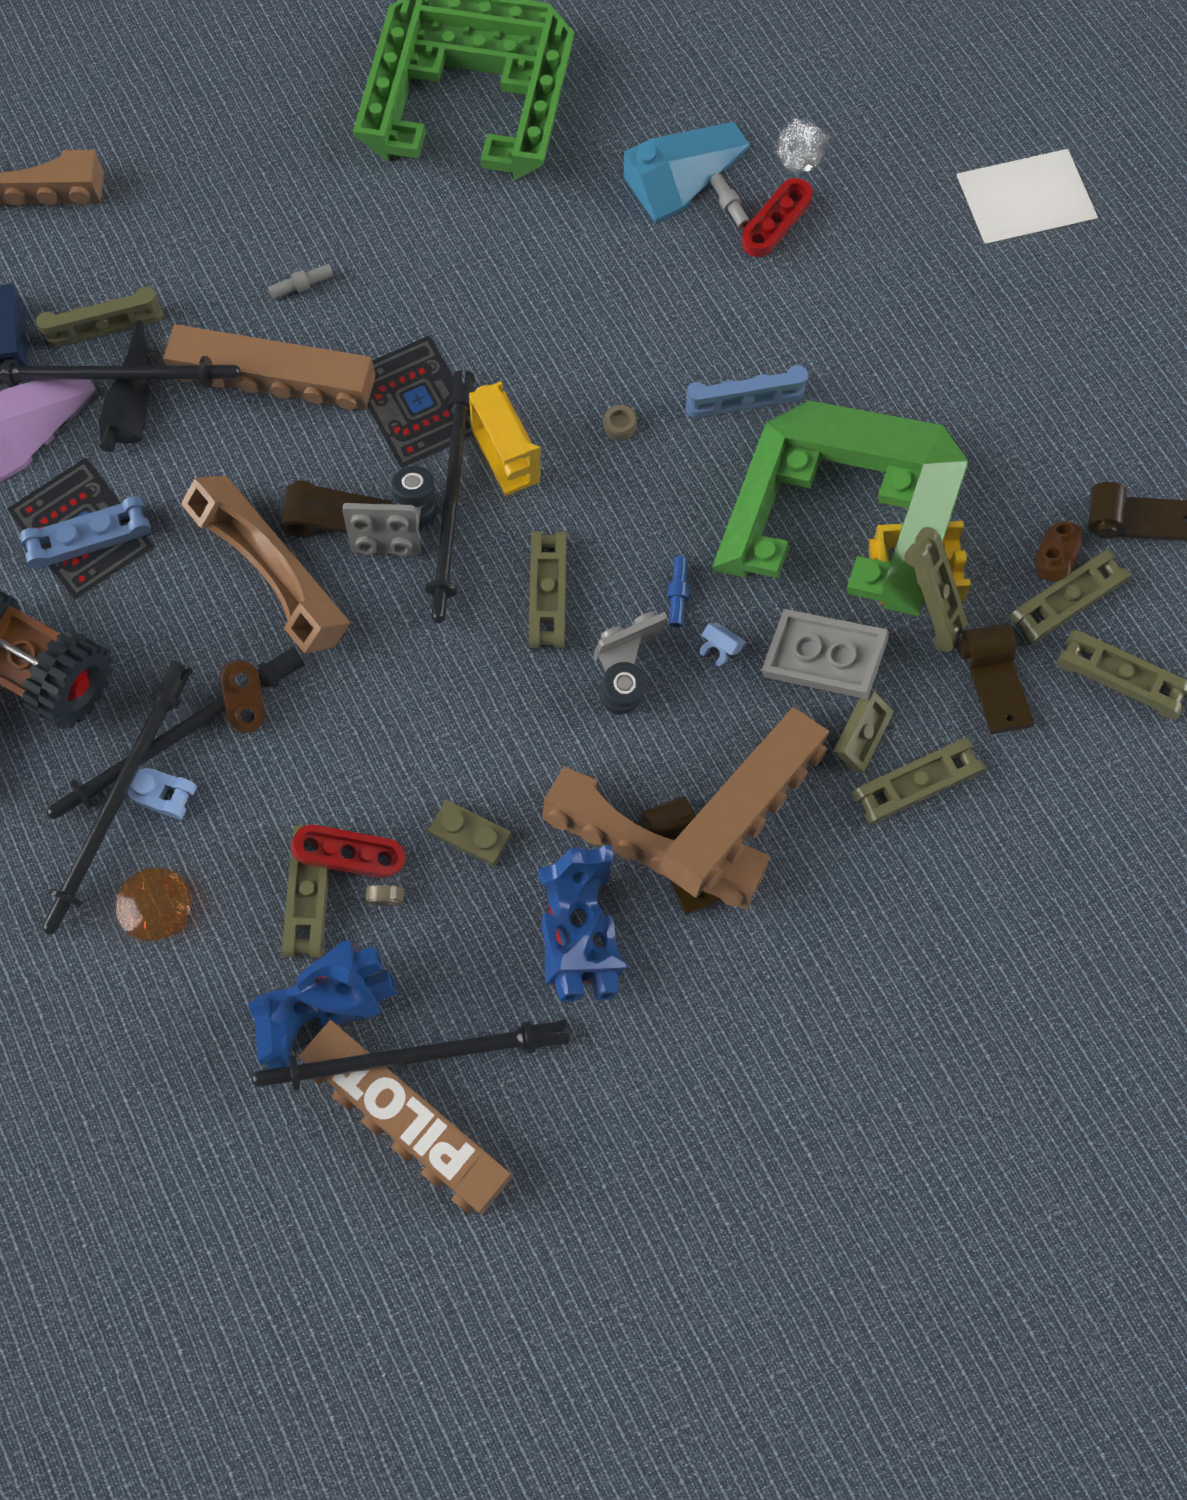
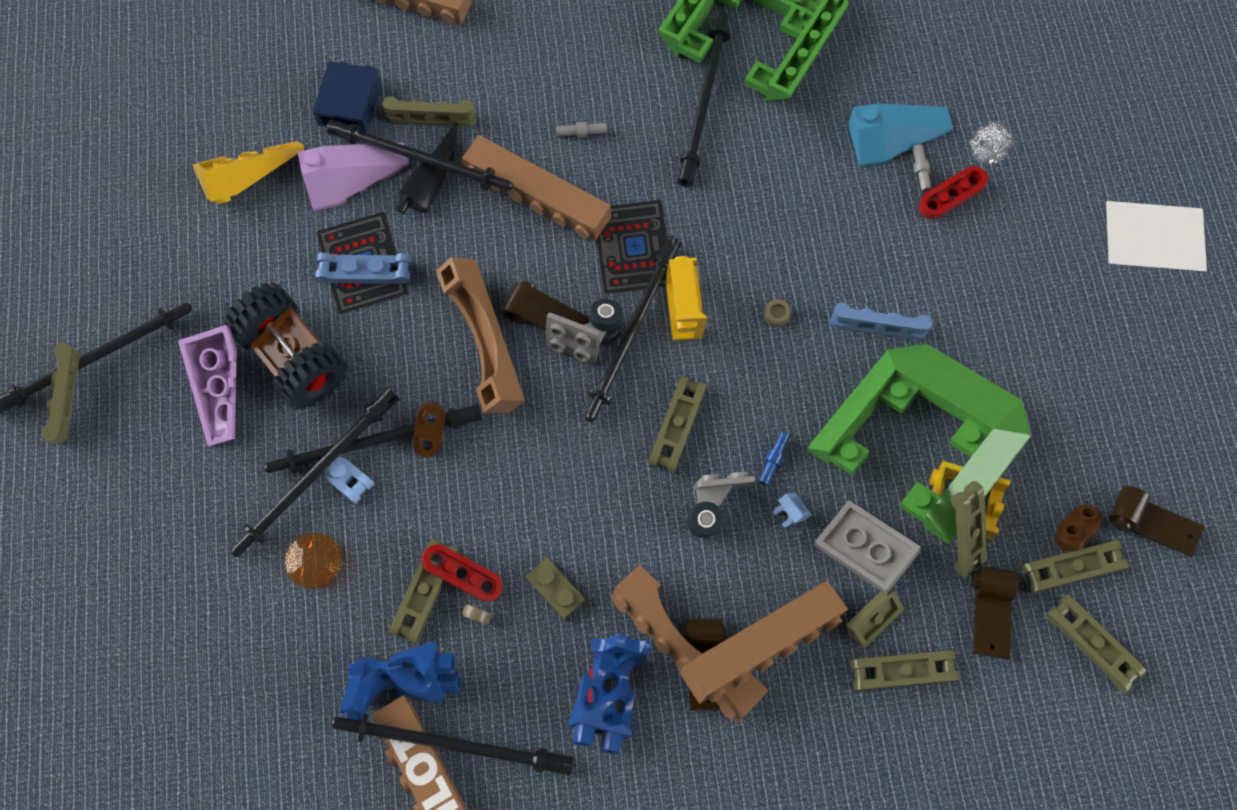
camera: 20 degrees right, 0 degrees up
(448, 275) = (690, 159): none -> black bar

